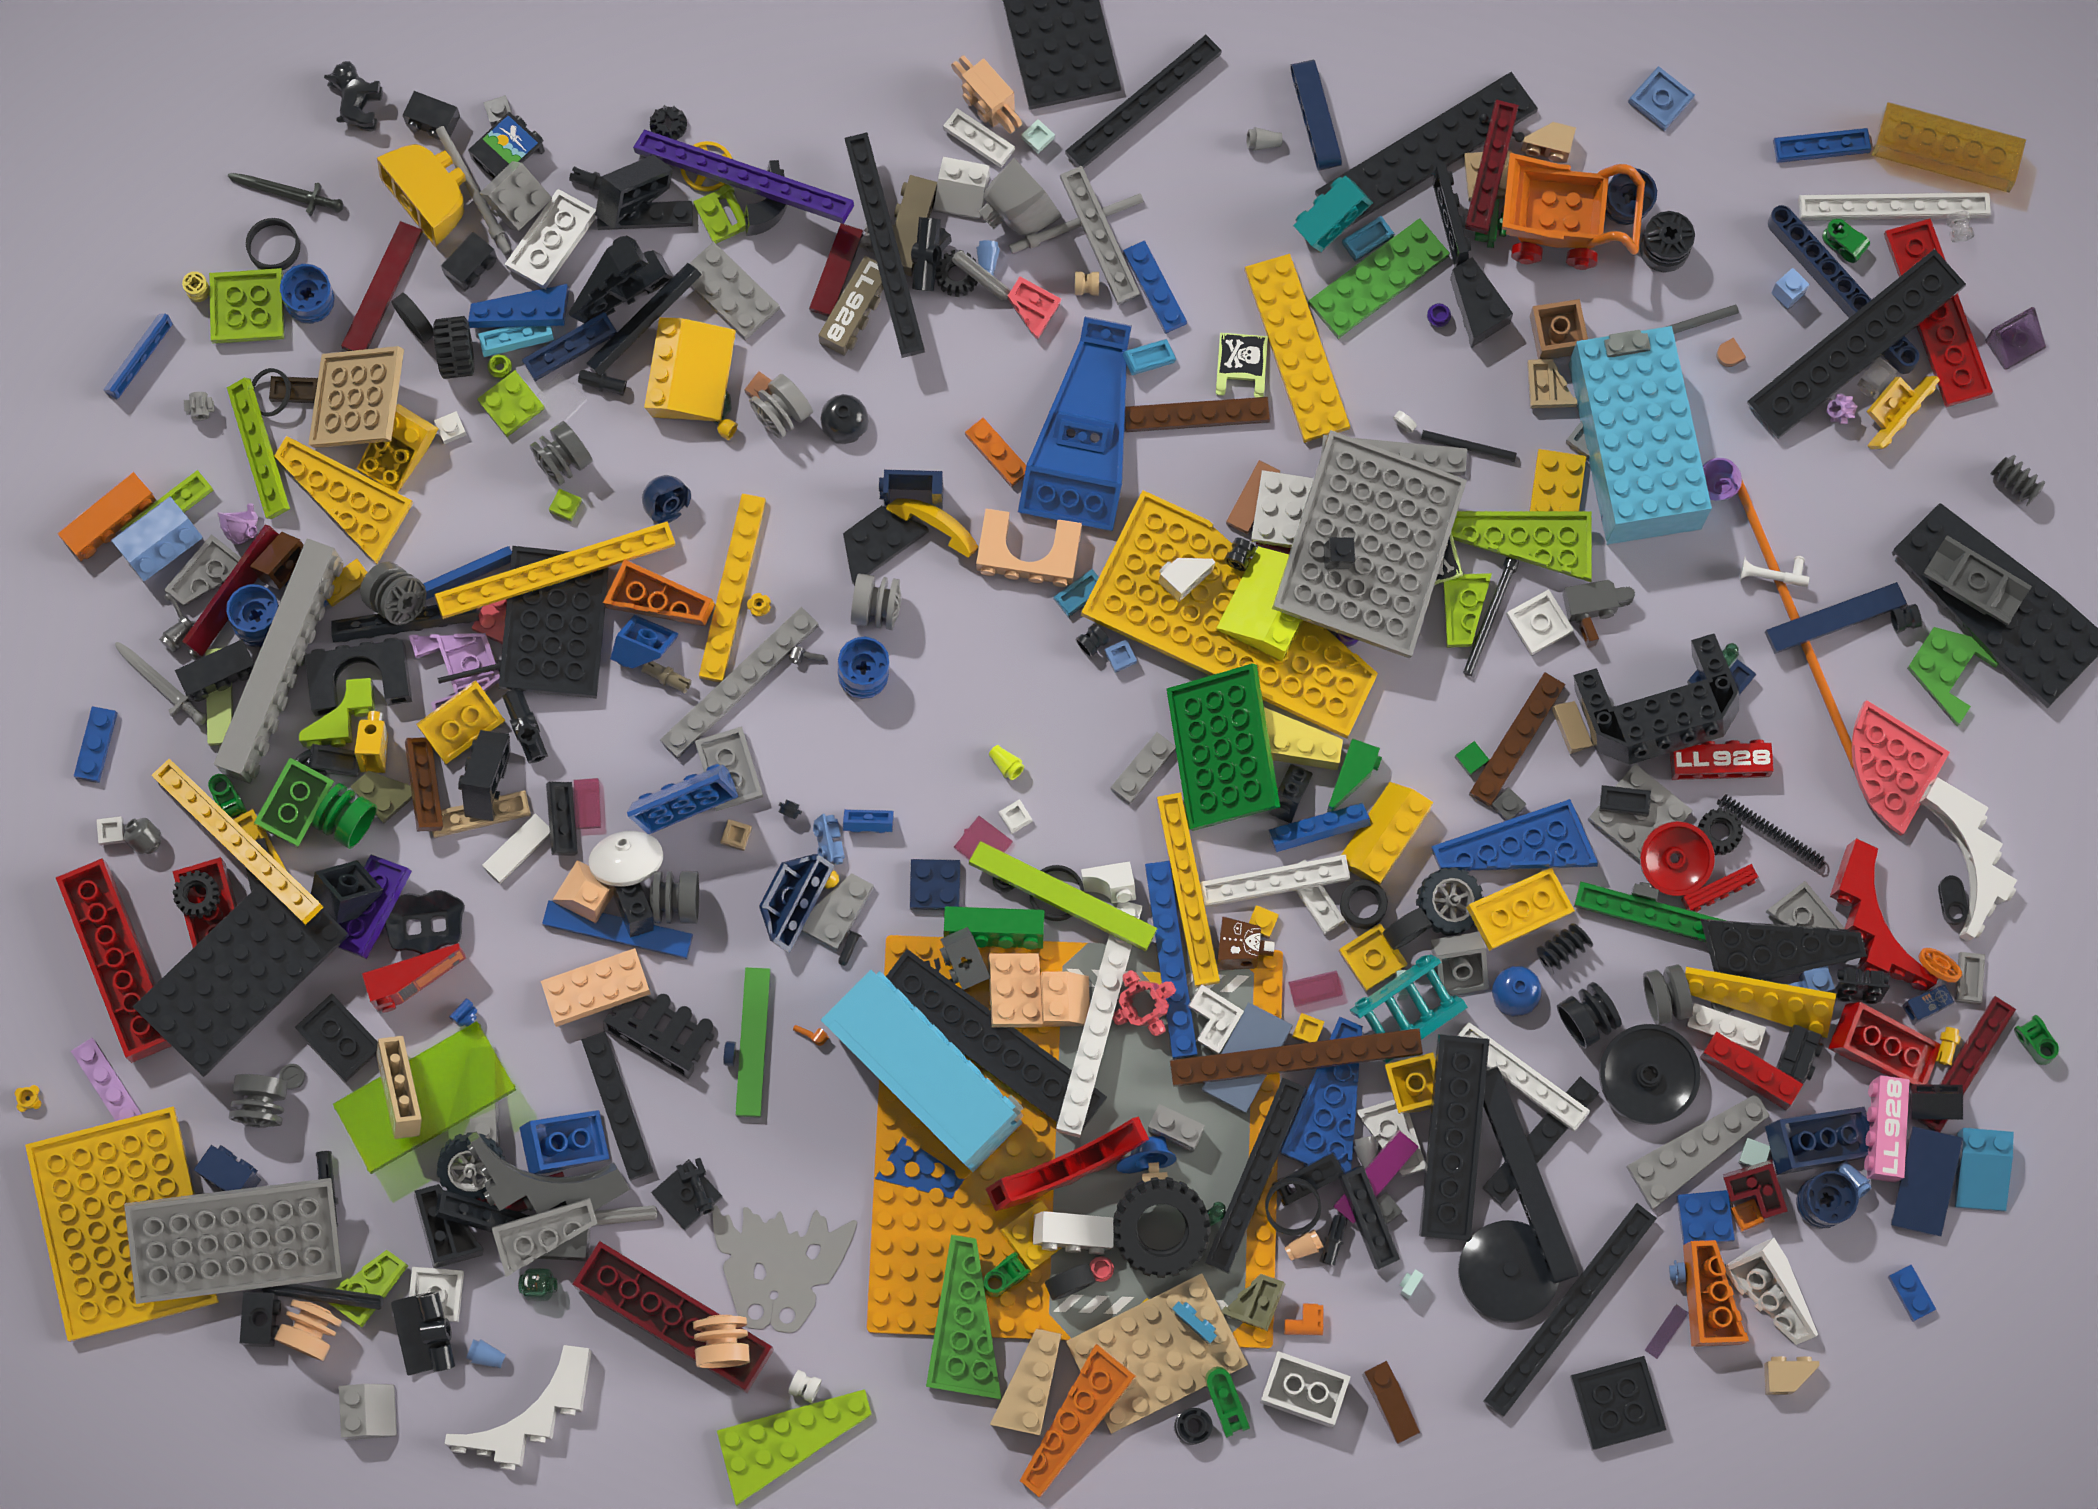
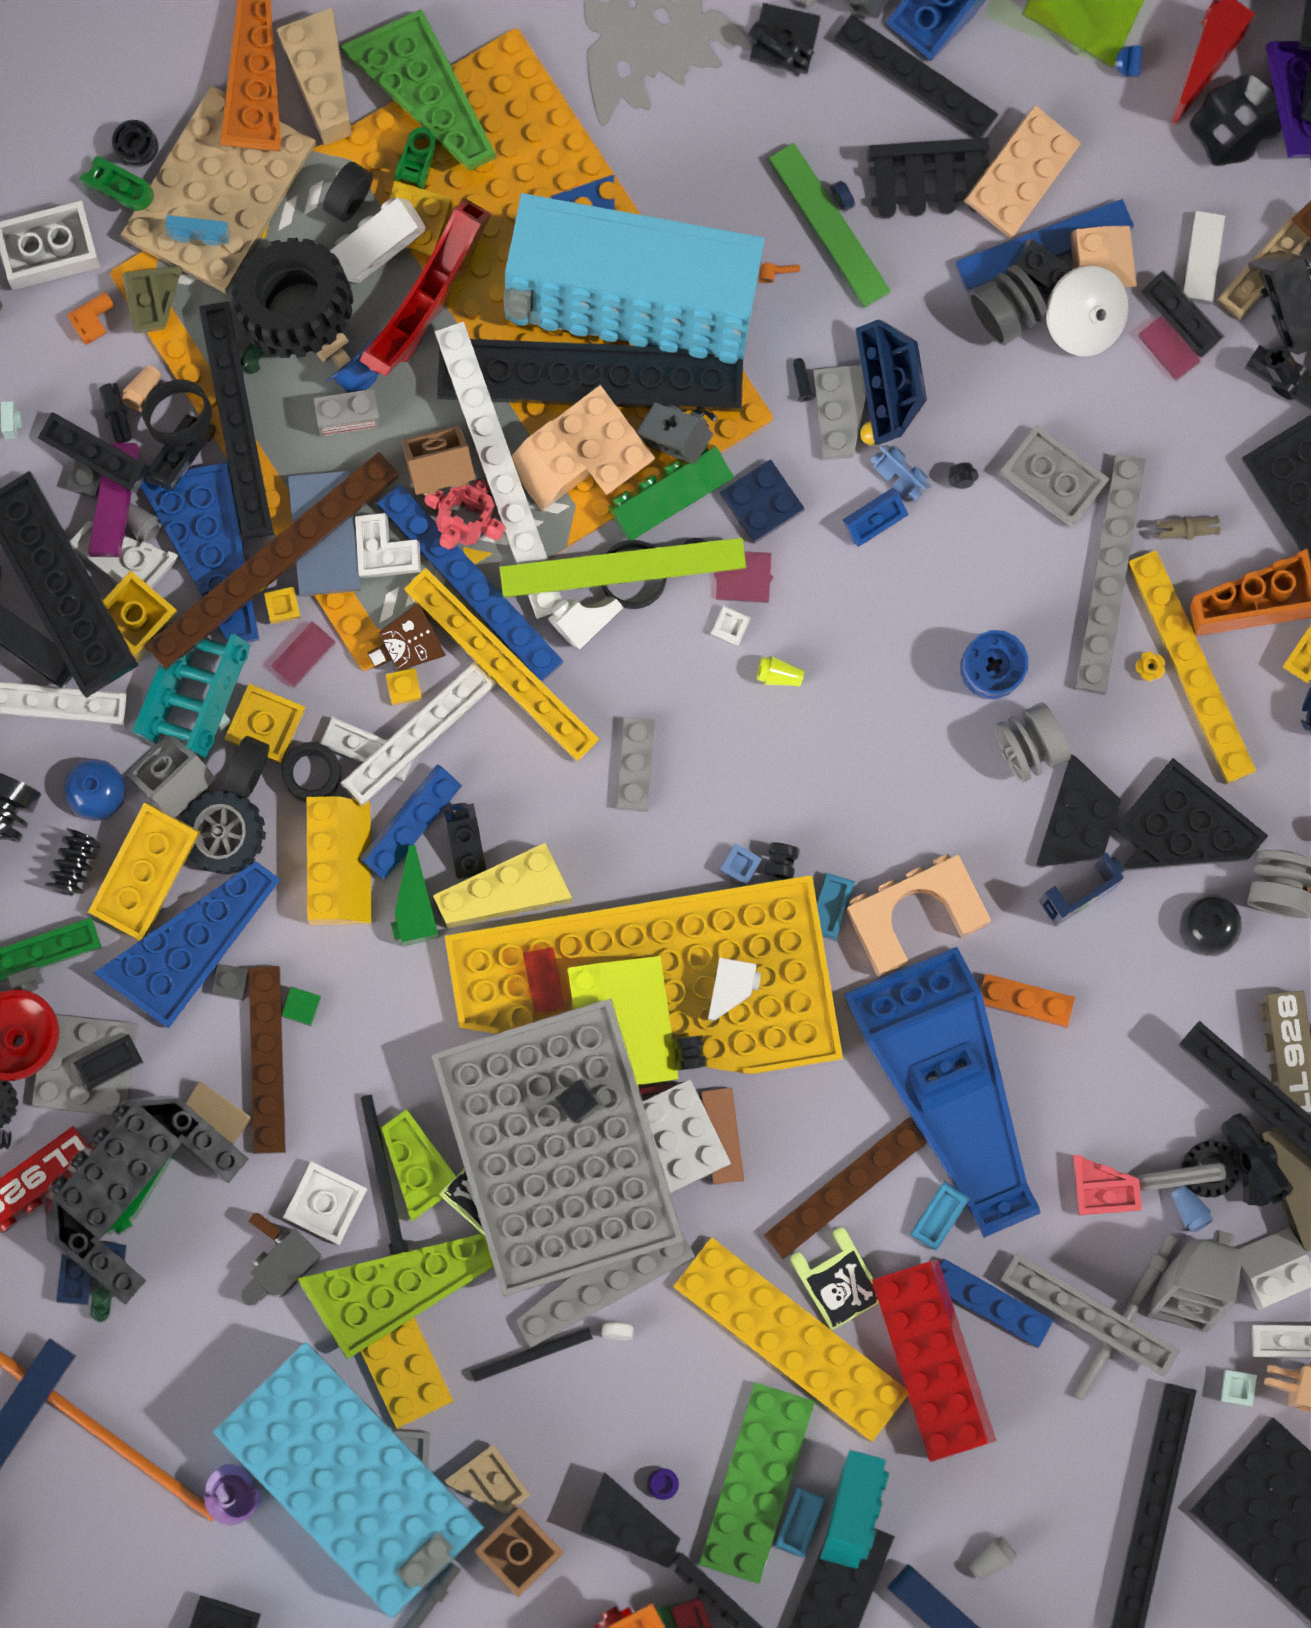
camera: 140 degrees right, 5 degrees up
(641, 642) = (1237, 543): blue slope -> none
(683, 799) = (1078, 403): blue slope -> none
(736, 834) = (998, 417): tan tile -> none
(798, 653) = (1073, 643): flat silver hand -> none
(813, 490) = (1186, 825): none -> black wing
(961, 538) = (1033, 878): yellow slope -> none
(1086, 283) = (1065, 1252): tan wheel -> none
(1102, 1268) = (327, 231): coral plate -> none
(1138, 1048) = (438, 460): none -> medium nougat brick
(1217, 271) = (934, 1360): none -> red brick
(1223, 747) = (564, 829): green plate -> none
(1303, 661) = (544, 980): none -> clear red plate
(1794, 578) = (81, 1439): white piece -> none

